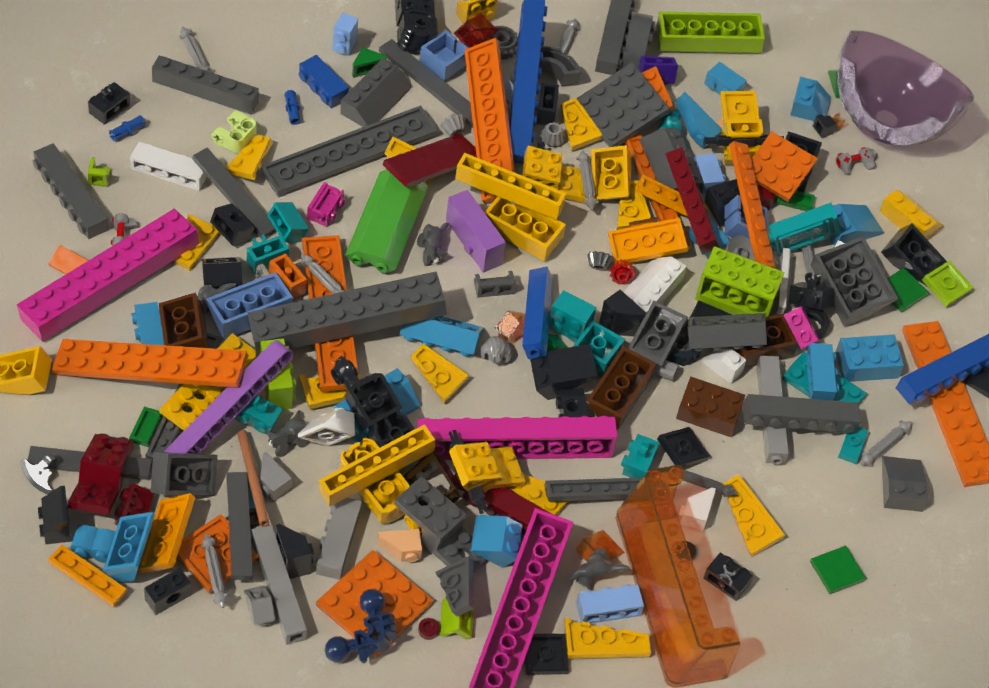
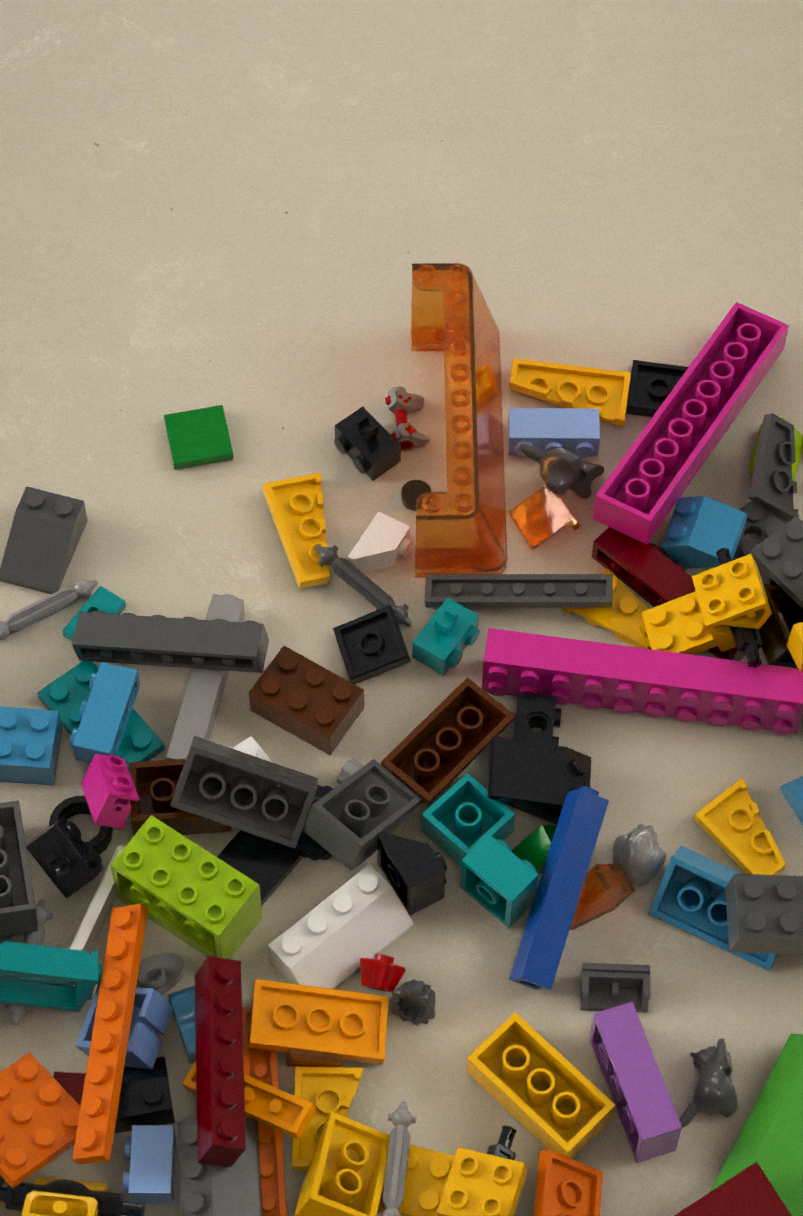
camera: 160 degrees left, 5 degrees up
(510, 186) = (562, 1128): yellow brick -> none
(716, 609) = (400, 403): none -> light grey piece

